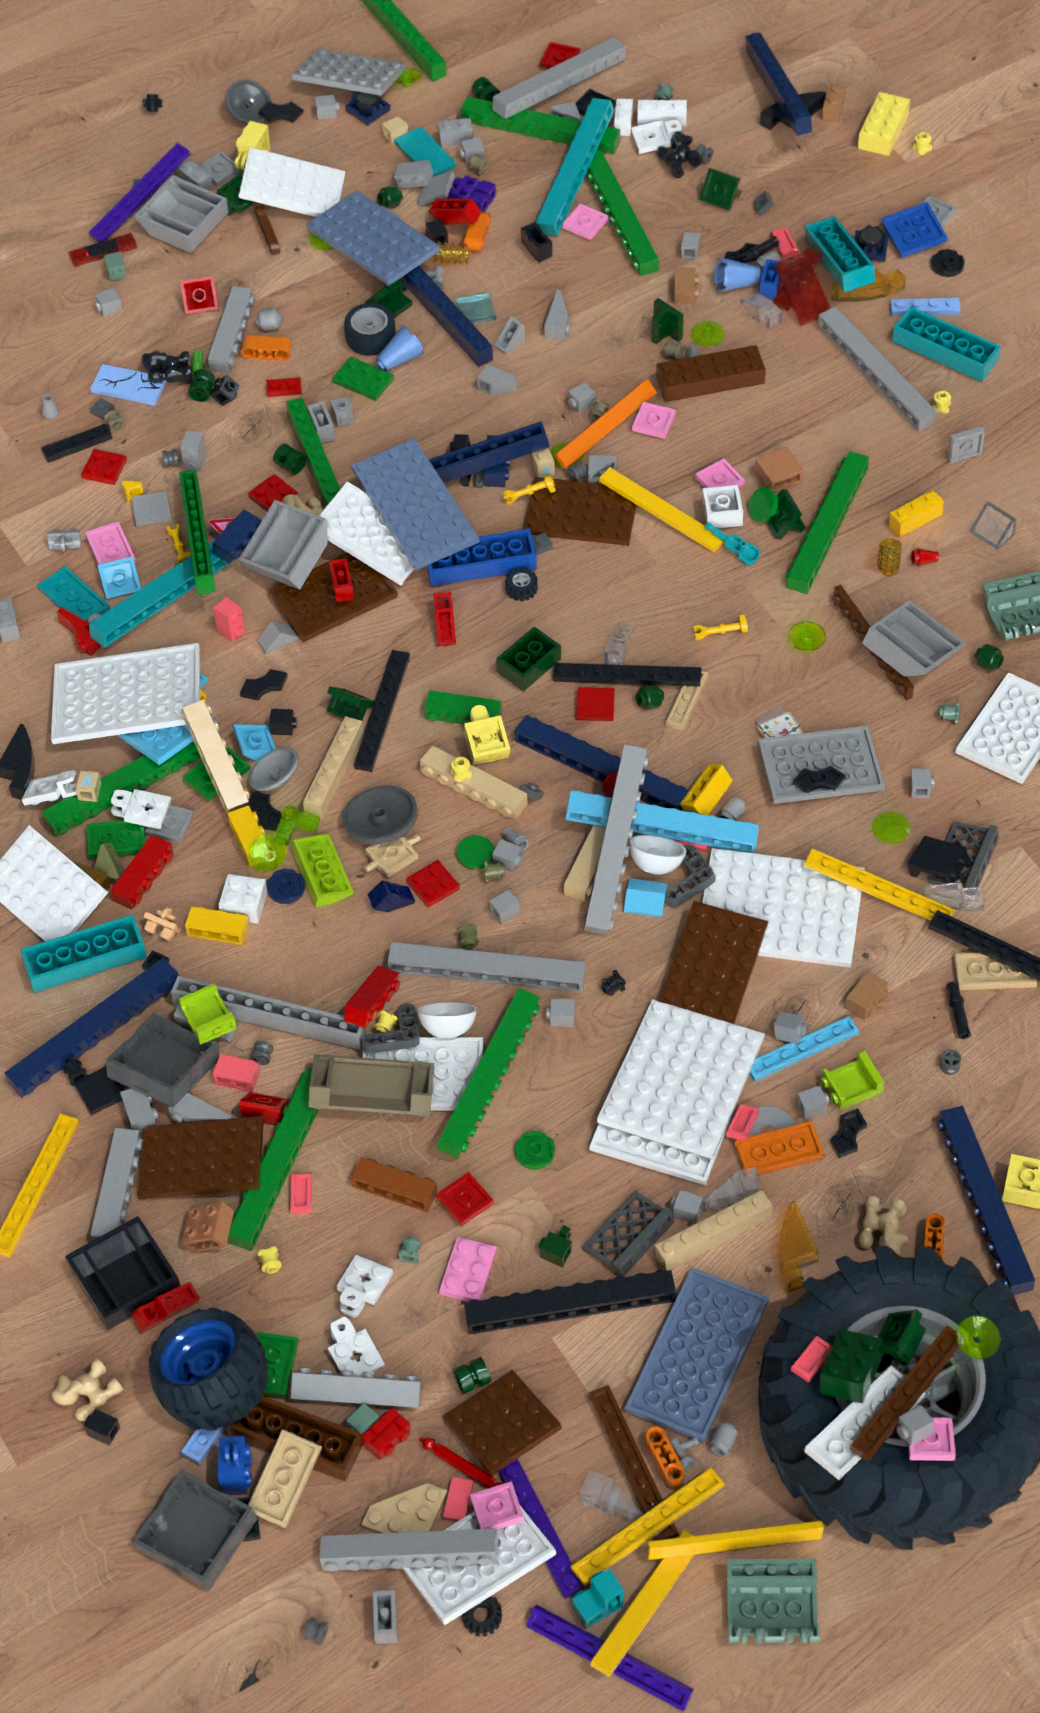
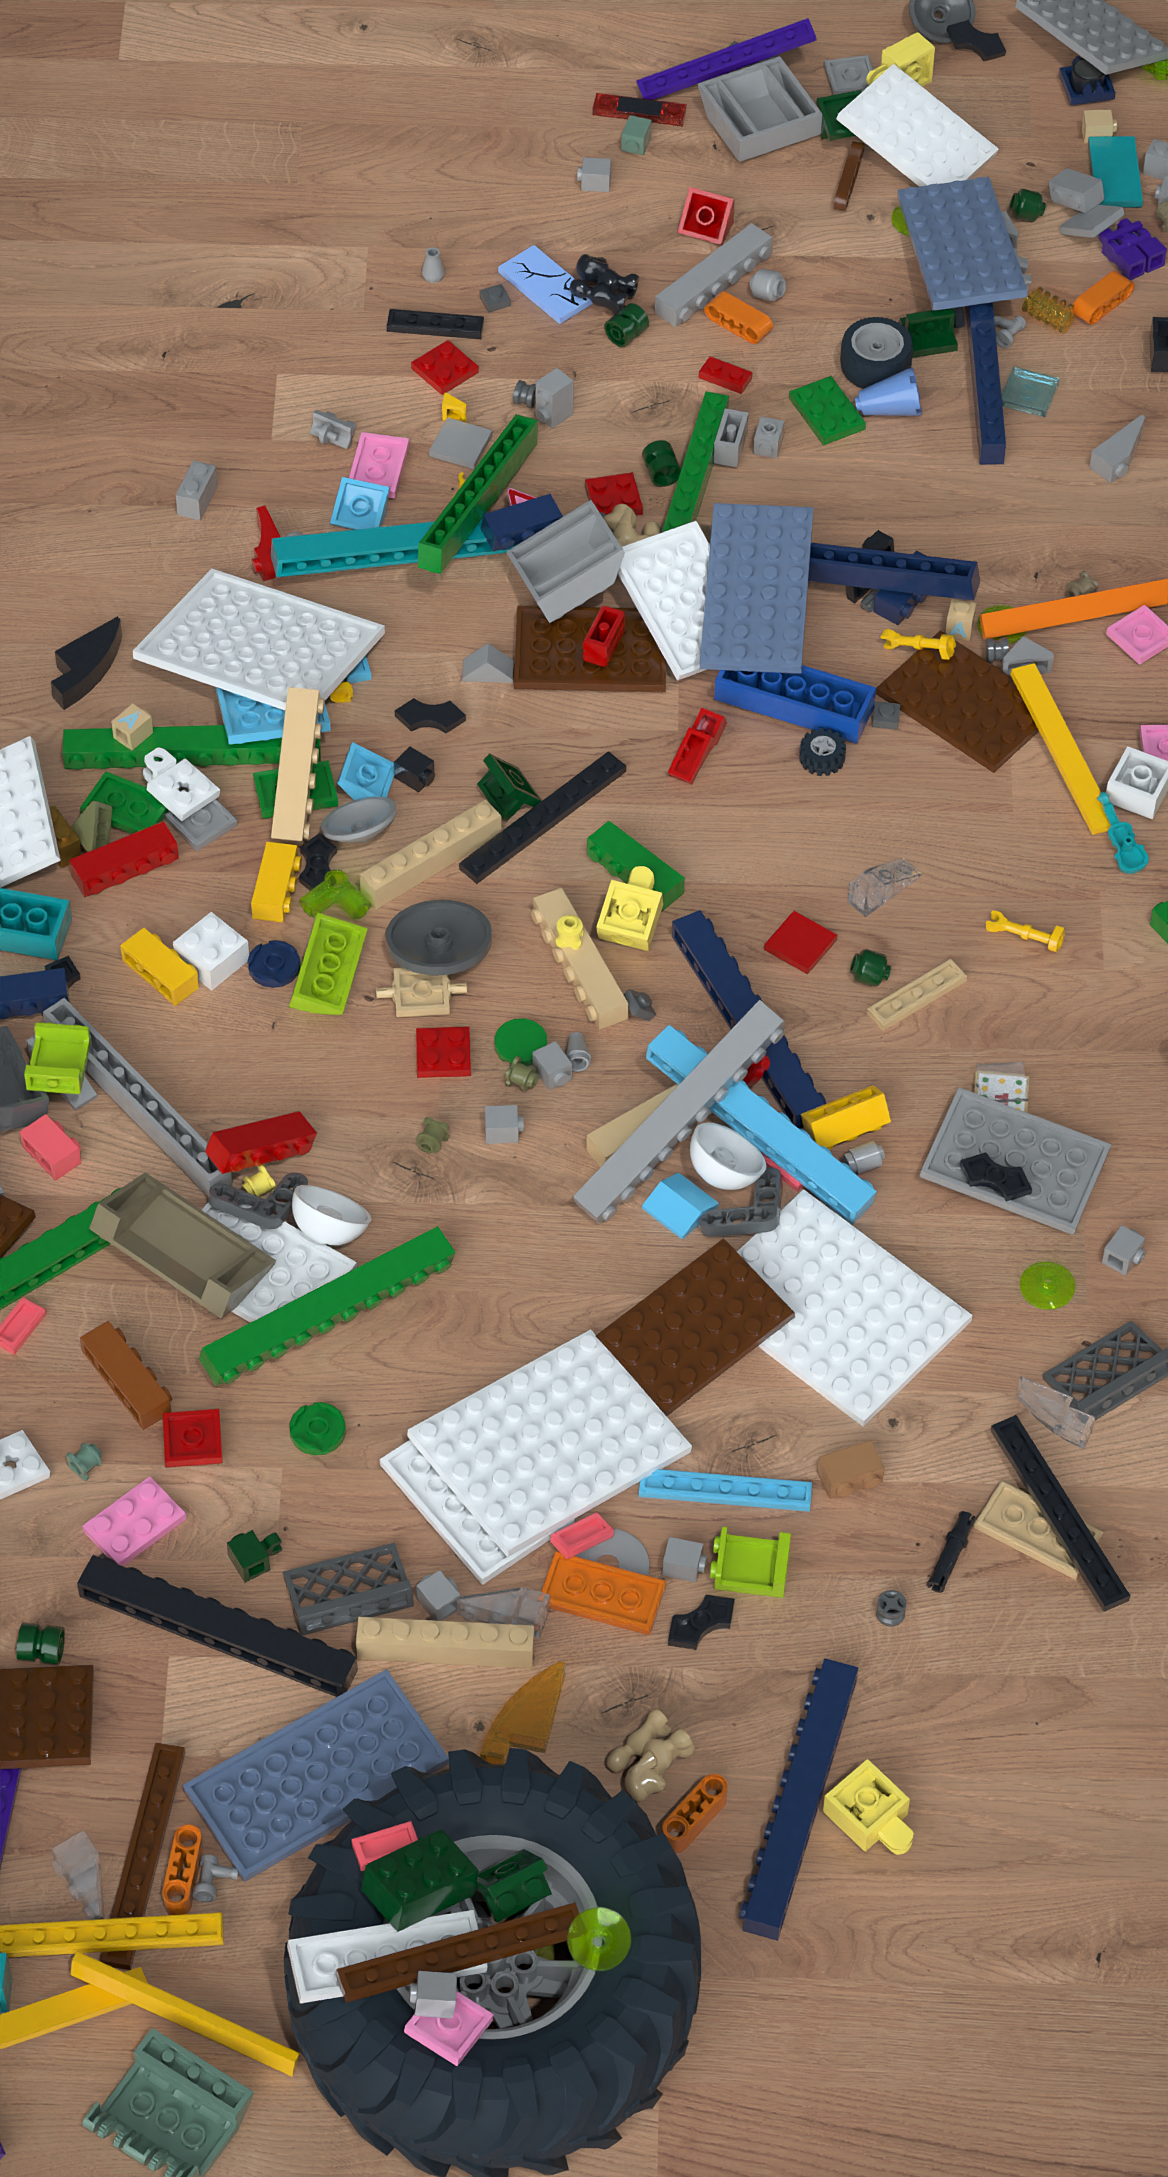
camera: 30 degrees right, 0 degrees up
(50, 788) = (91, 706): white plate -> none
(72, 594) = (294, 498): teal tile -> none
(114, 421) = (495, 318): dark tan brick -> none
(169, 929) = (92, 924): light nougat hips -> none
(194, 174) = (810, 72): light grey brick -> none
(197, 361) = (646, 294): bright green axle -> none
(224, 390) = (649, 343): black brick -> none
(229, 619) = (442, 616): coral brick -> none
(262, 846) = (285, 904): clear neon green dish -> none
(262, 1052) = (96, 1140): dark grey wheel -> none
(263, 1105) = (48, 1200): red slope -> none
(326, 107) = (1035, 59): light grey brick -> none
(390, 896) = (380, 1040): clear blue slope -> none
(437, 232) = (1051, 275): black brick -> none
(455, 211) = (1087, 259): red brick -> none
(487, 967) = (427, 1184): light grey brick -> none
(496, 381) = (982, 491): light grey slope -> none
(511, 336) = (1044, 445): light grey slope -> none
(528, 658) = (758, 844): dark green brick -> none
(562, 1012) = (471, 1285): light grey brick -> none
(581, 397) = (1071, 561): light grey brick -> none
(613, 983) = (557, 1285): black brick -> none
(627, 674) = (866, 927): black plate -> none
(723, 1439) = (266, 1890): light grey brick -> none
(789, 1027) = (724, 1454): light grey brick -> none
(807, 636) = (1126, 988): clear neon green dish -> none
(875, 885) = (966, 1344): yellow tile -> none
(938, 859) = (1067, 1355): black panel -> none

